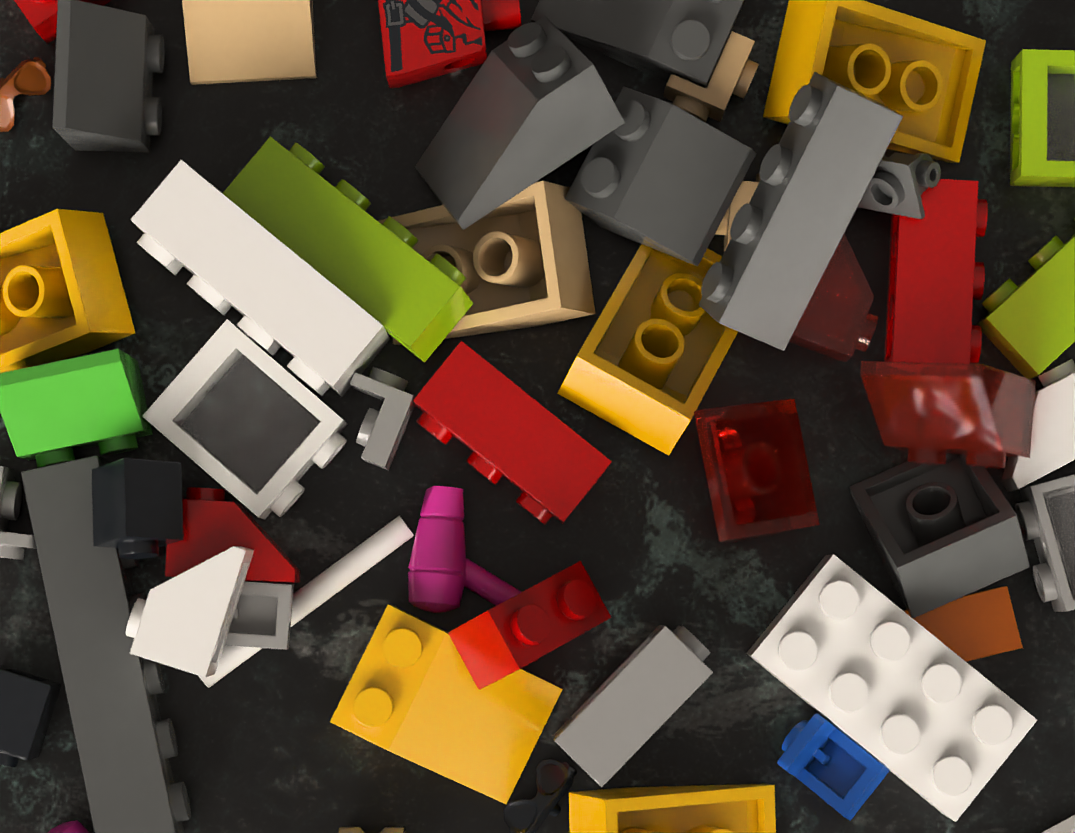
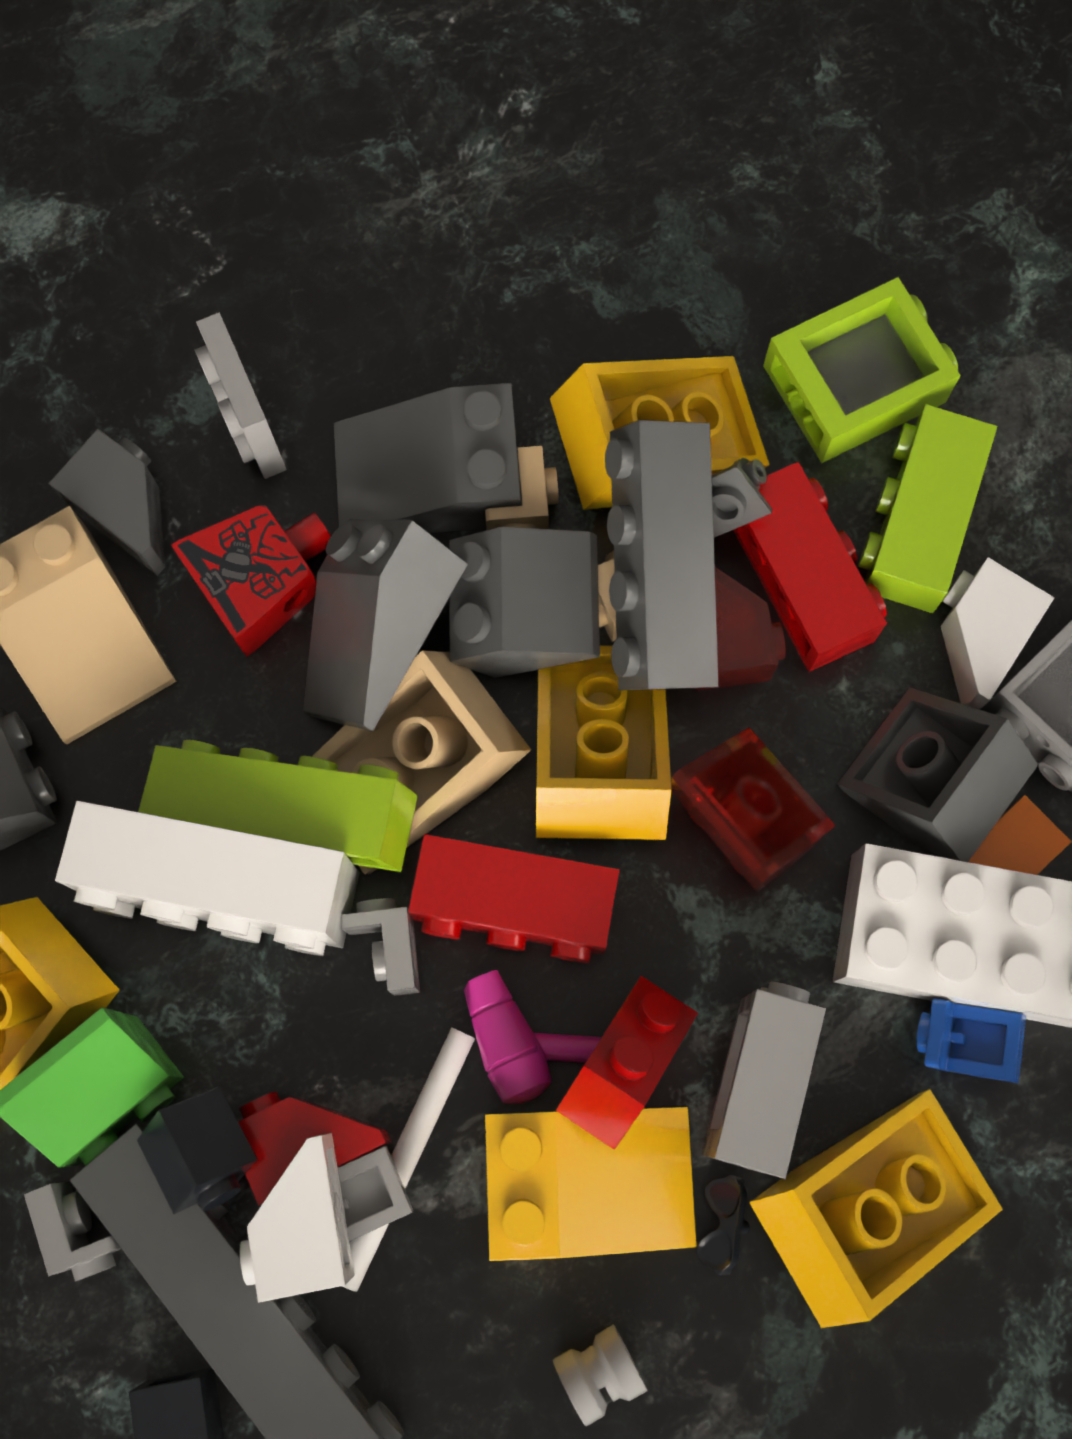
camera: 25 degrees left, 10 degrees down
(247, 422) = (265, 1015): window -> none
(951, 411) = (892, 661): clear red slope -> none

